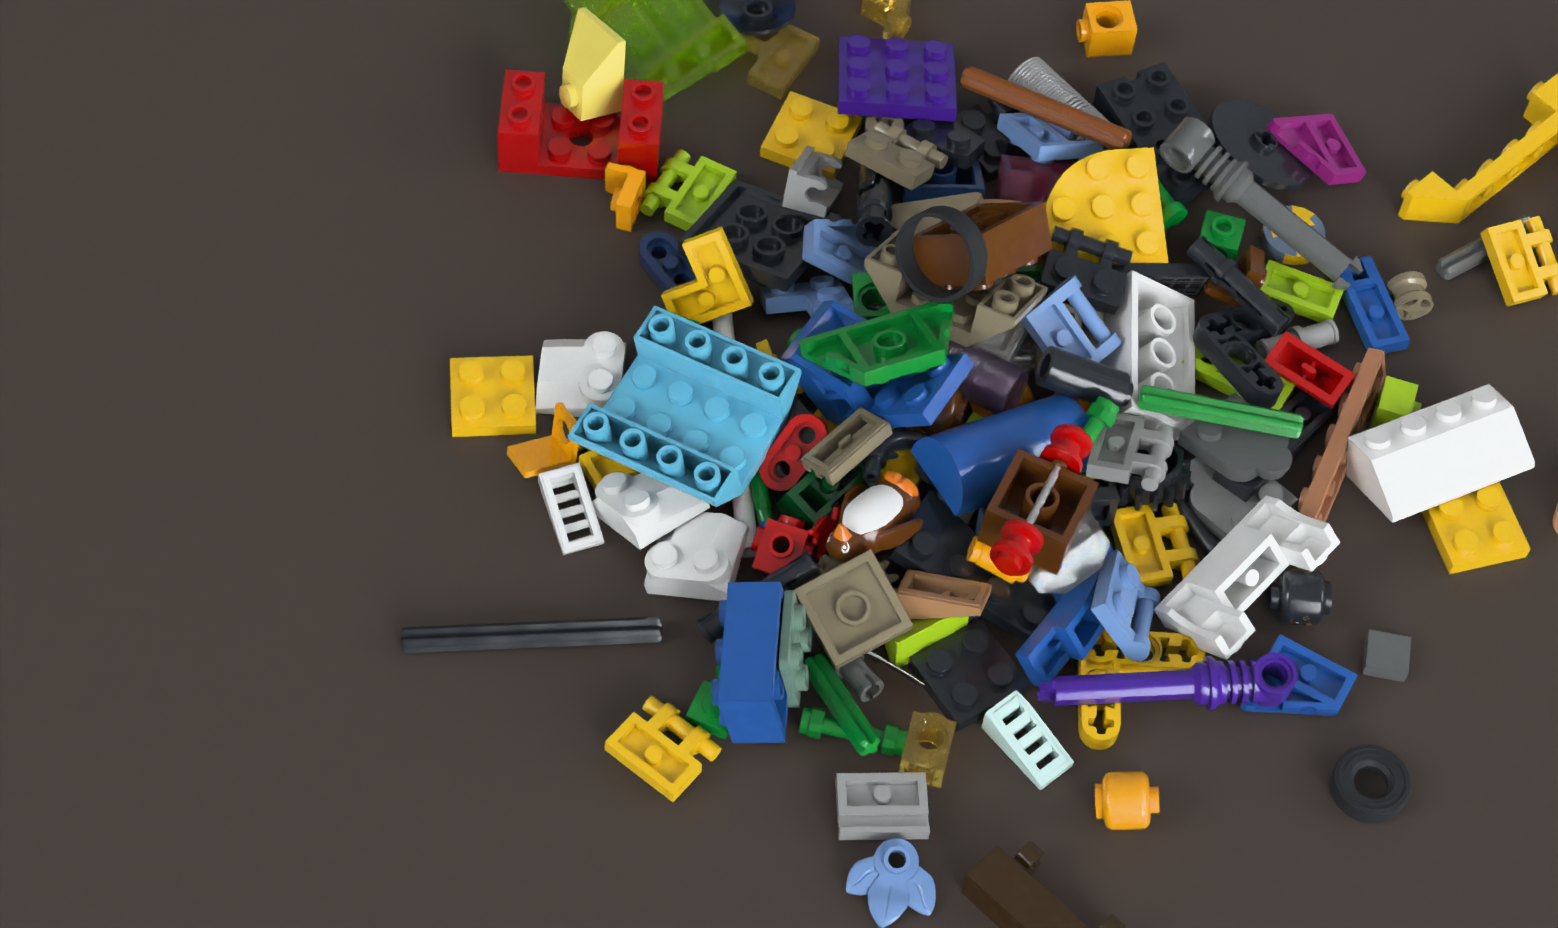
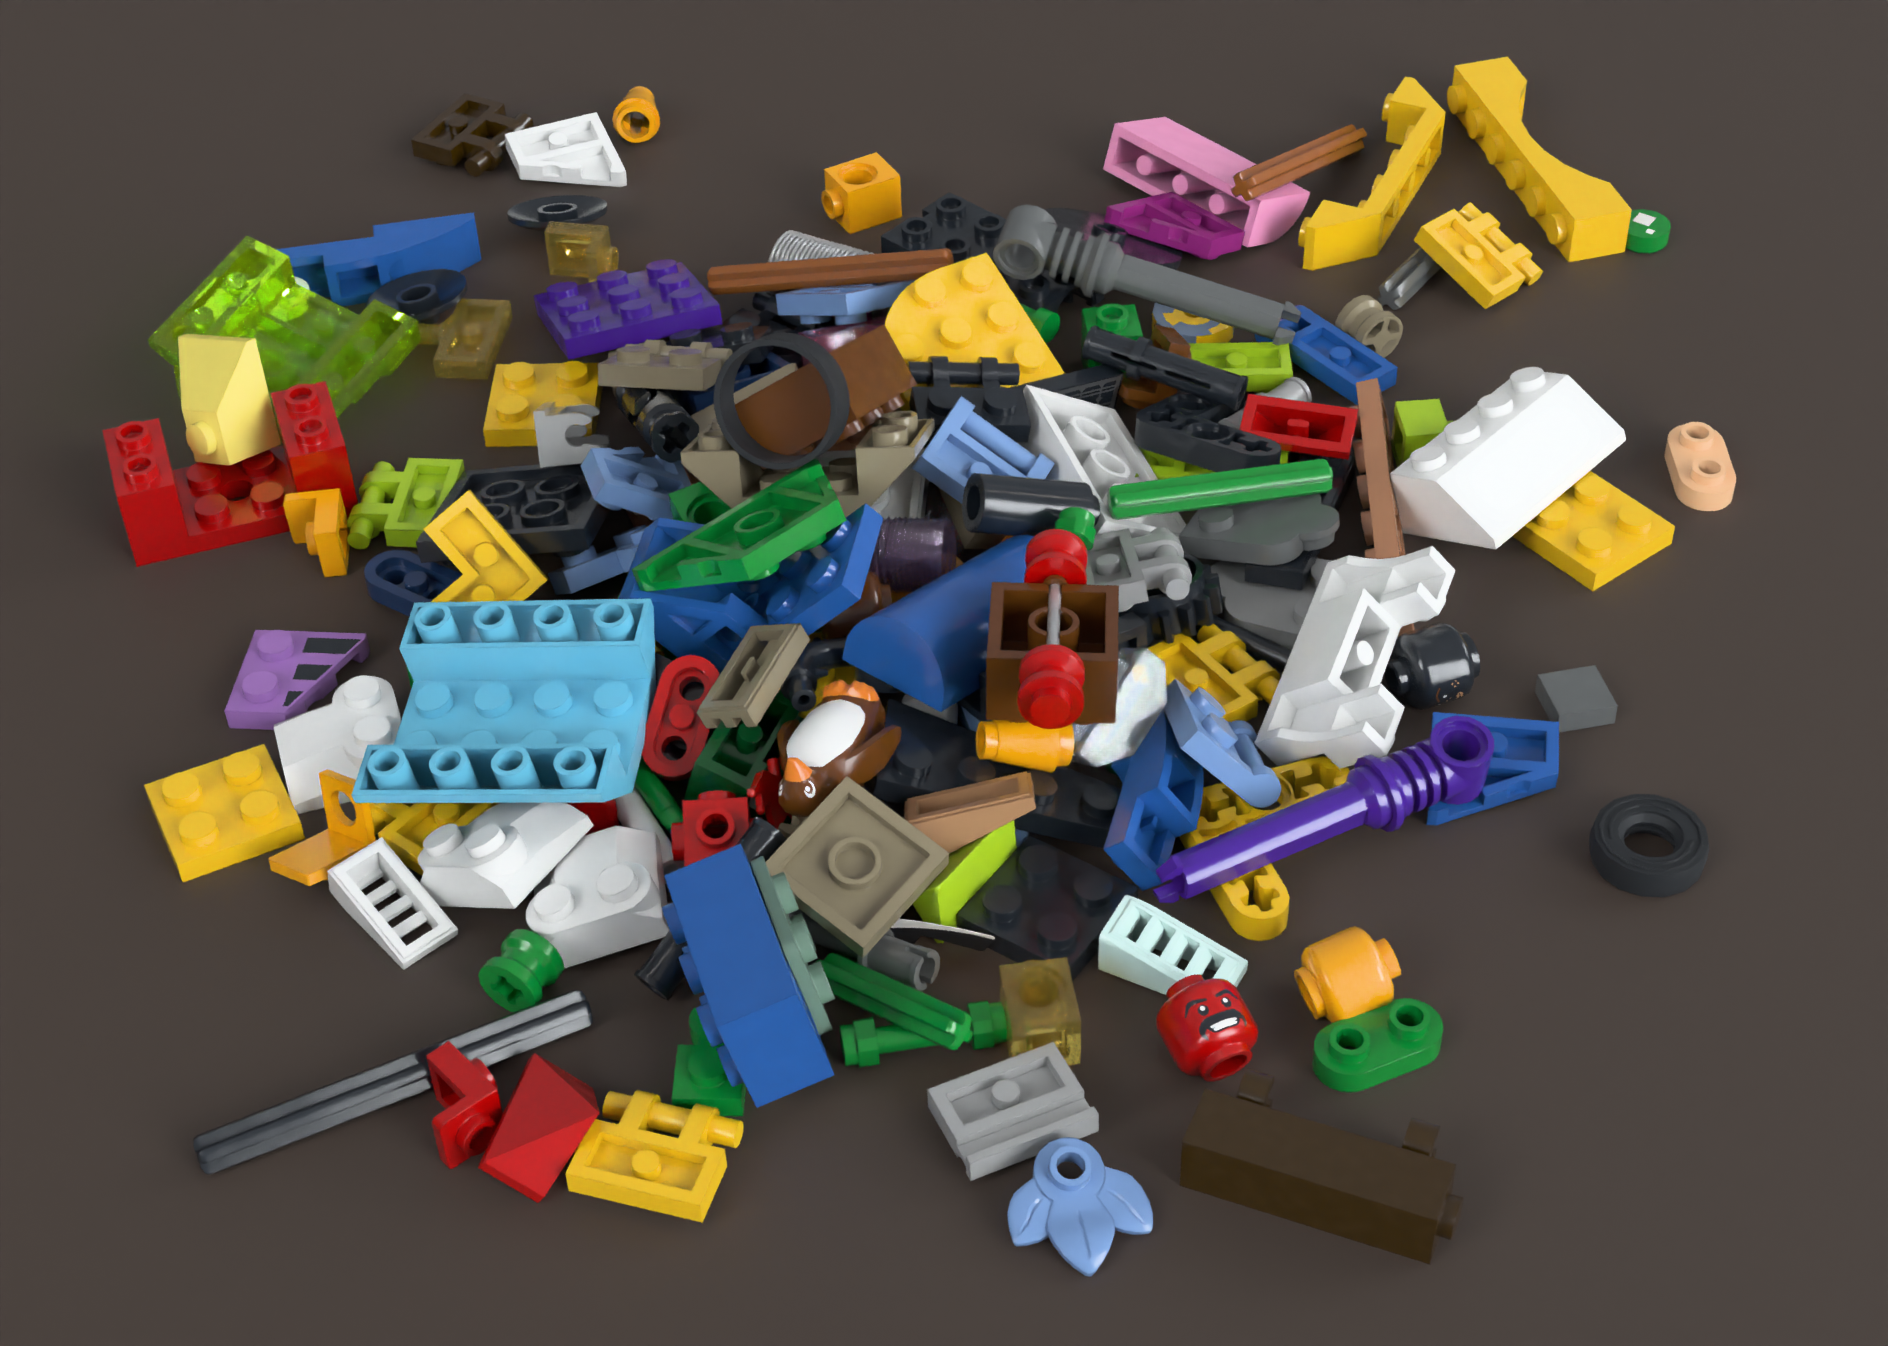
camera: 15 degrees left, 15 degrees down
(566, 302) = (288, 674): none -> medium lavender wing
(569, 662) = (469, 1102): none -> red bracket
(603, 703) = (539, 1128): none -> red slope
(630, 591) = (521, 970): none -> green wheel
(1023, 800) = (1207, 1027): none -> red head
(1126, 853) = (1386, 1044): none -> green plate
(1353, 89) = (1171, 158): none -> bright pink brick
(1435, 127) = (1298, 162): none -> dark orange axle

